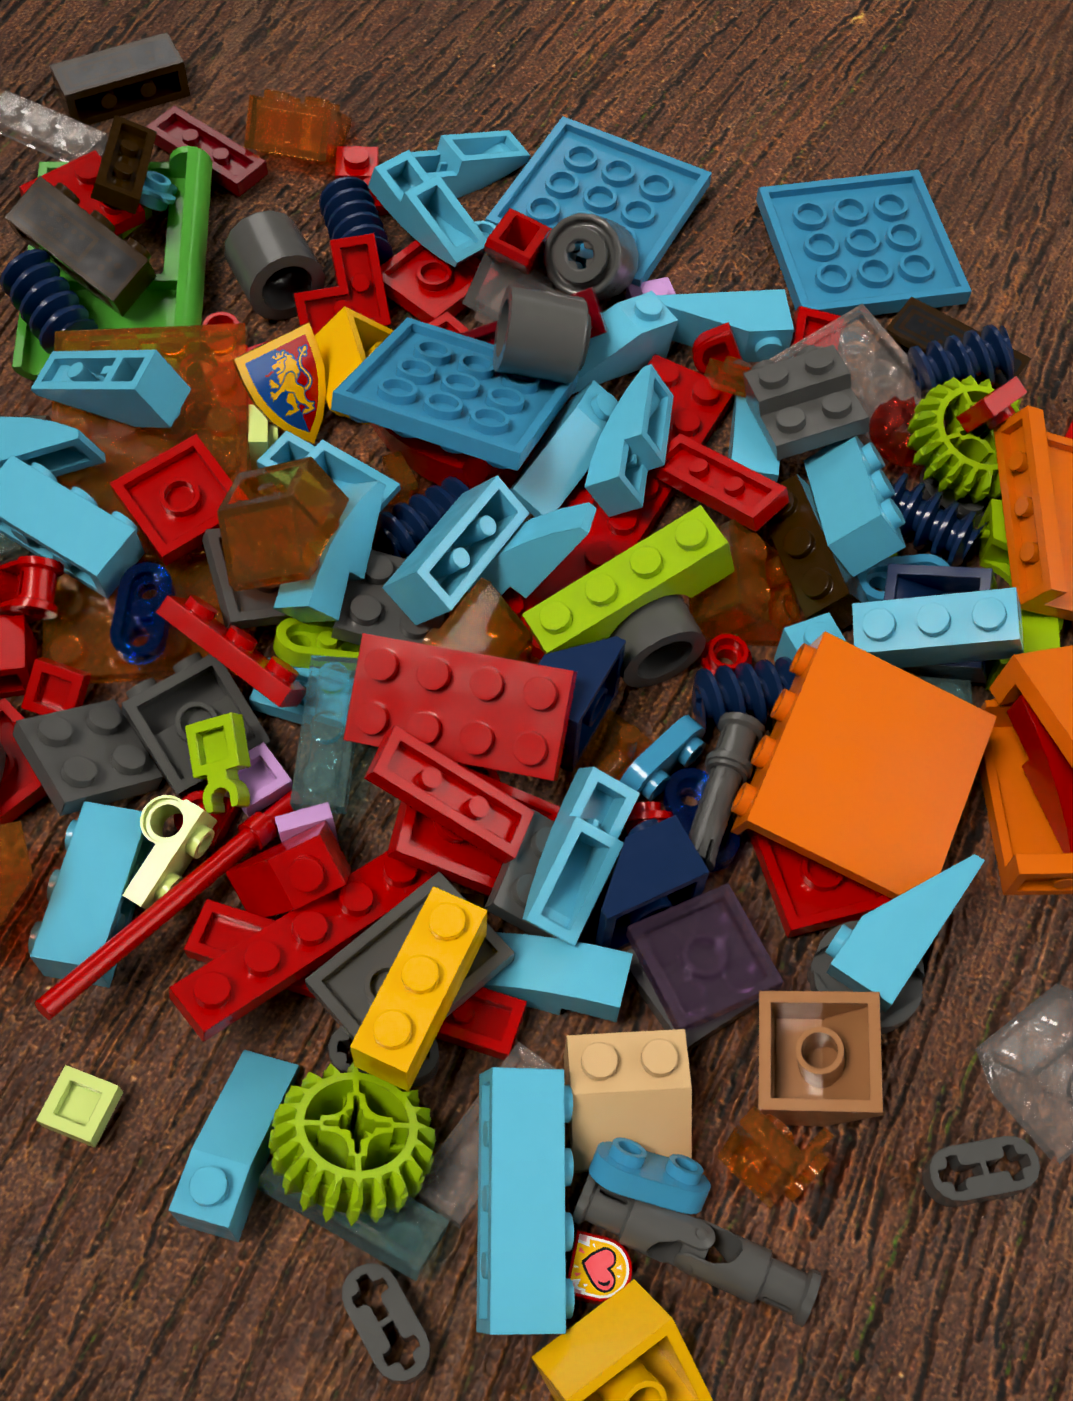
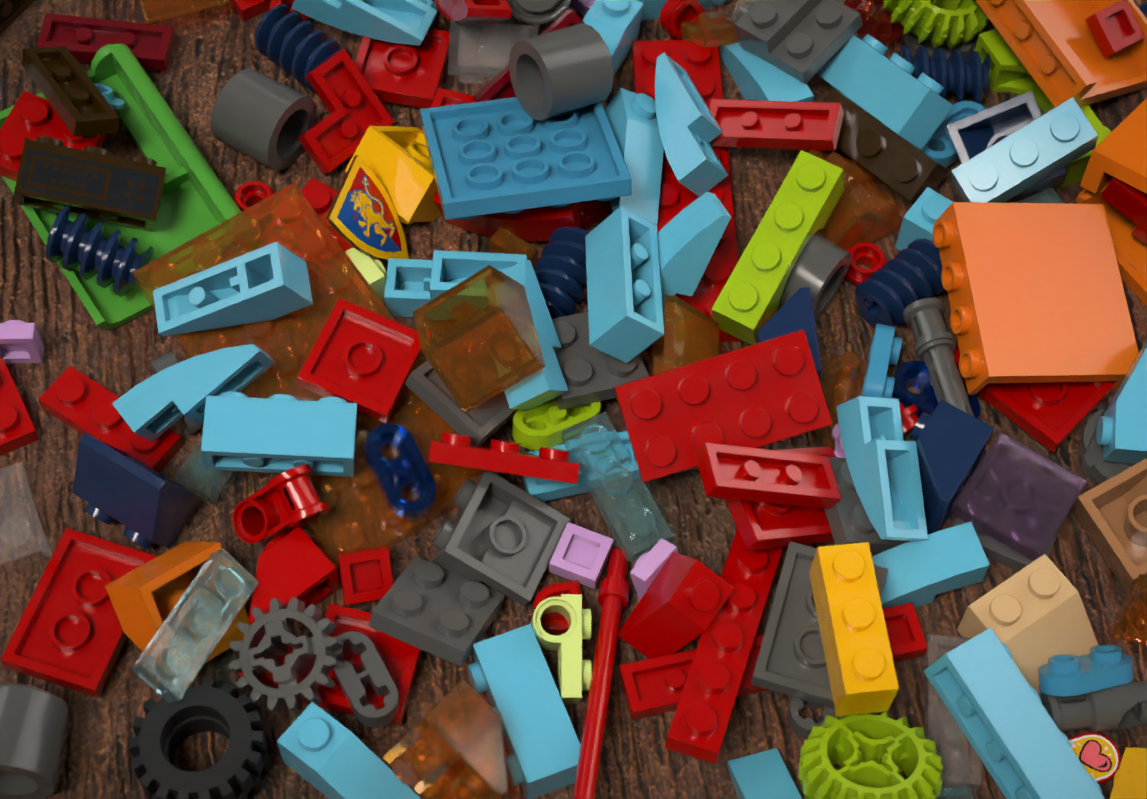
camera: 30 degrees left, 0 degrees up
(216, 754) = (548, 547): lime plate -> none

